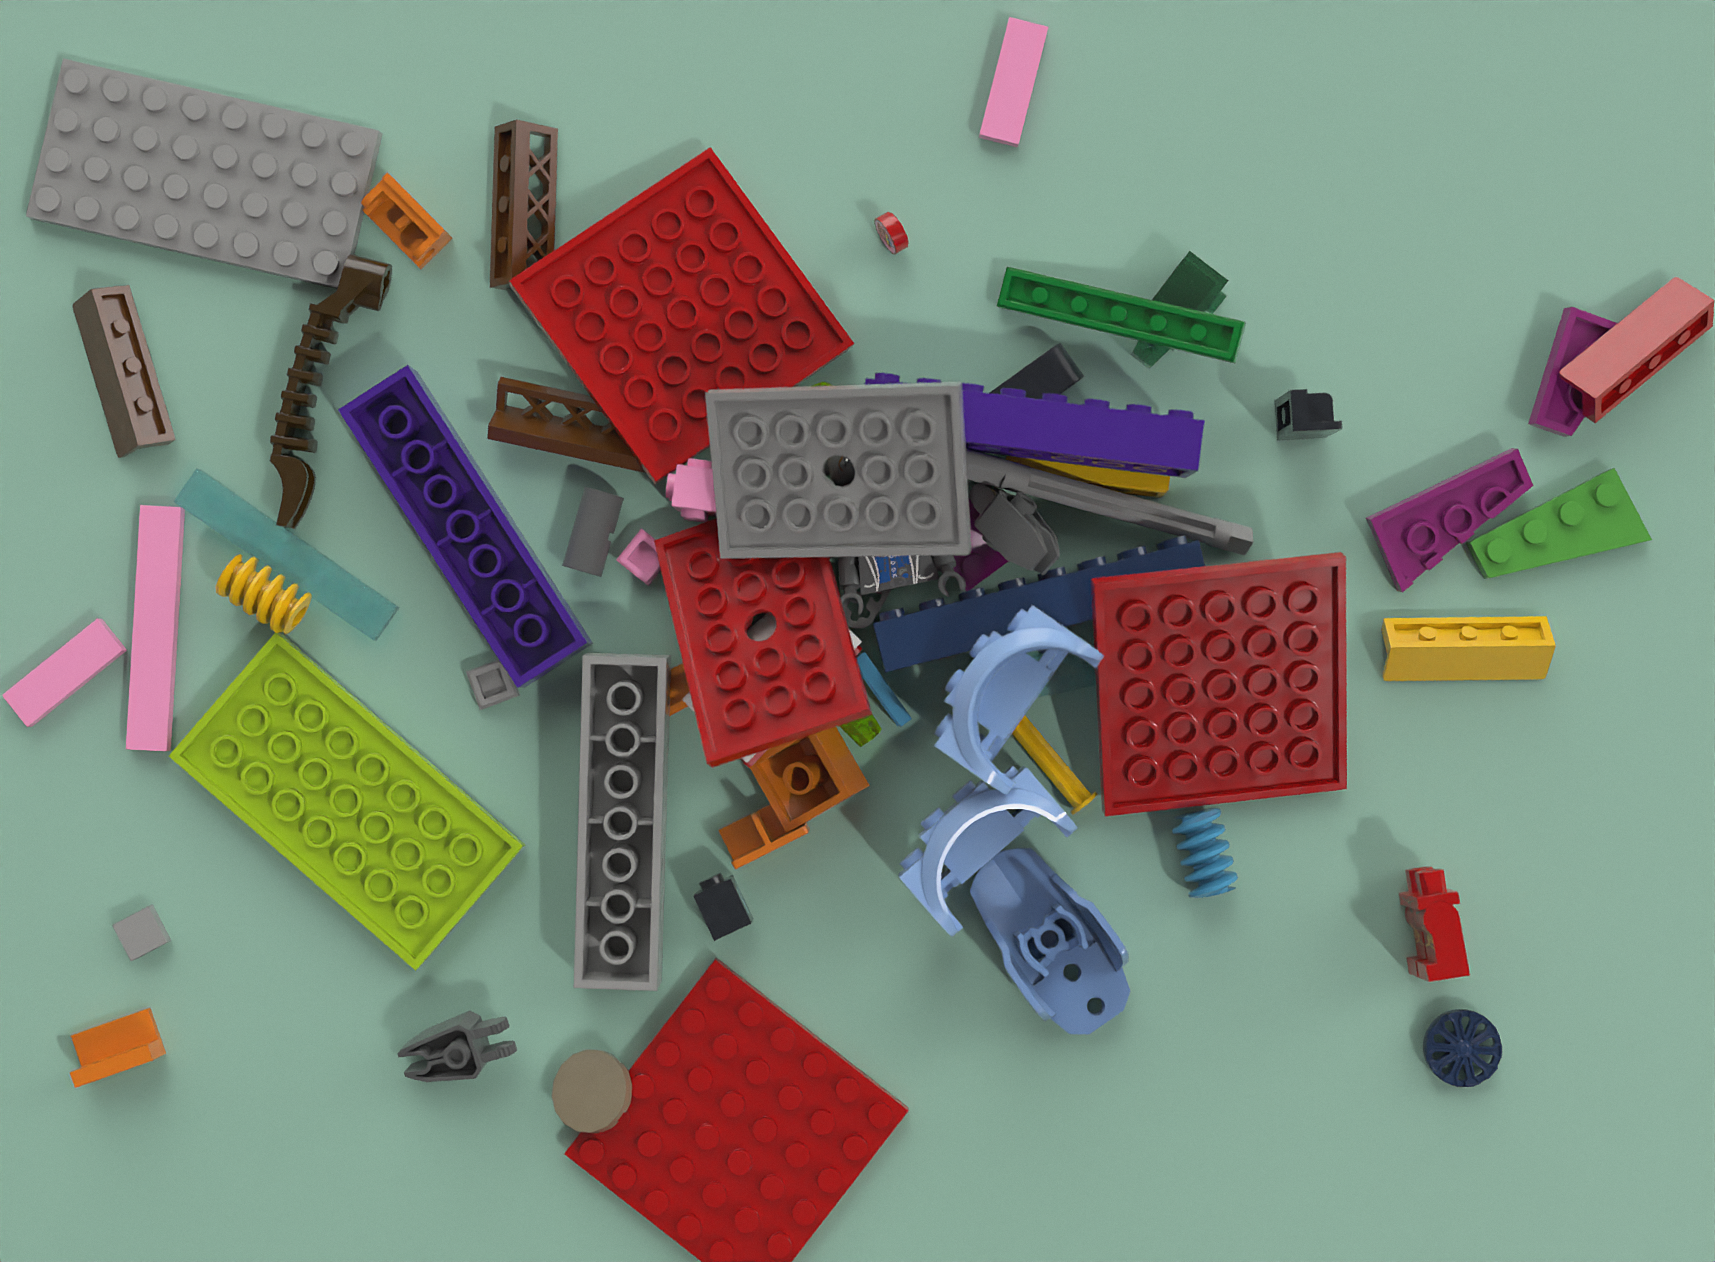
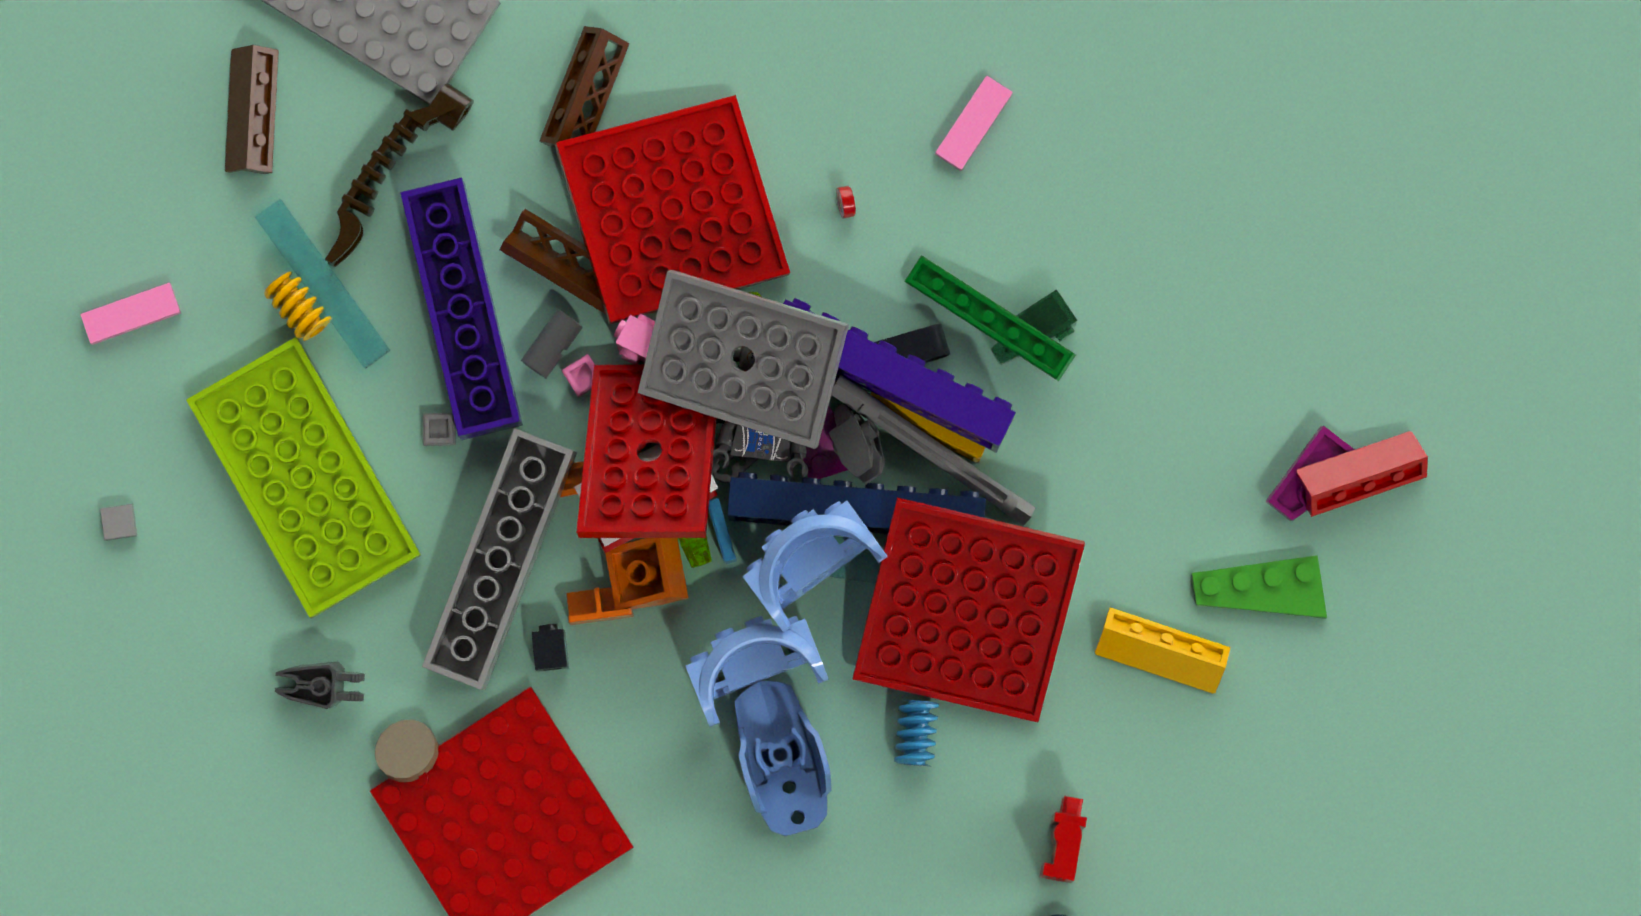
camera: 20 degrees right, 5 degrees down
(116, 1047) = (70, 598): orange panel -> none
(155, 628) = (208, 304): bright pink tile -> none
(404, 221) = (495, 72): orange hinge -> none
(1052, 765) = (827, 629): yellow axle -> none
(1305, 415) = (1100, 438): black panel -> none
(1434, 521) = (1175, 548): magenta wing -> none

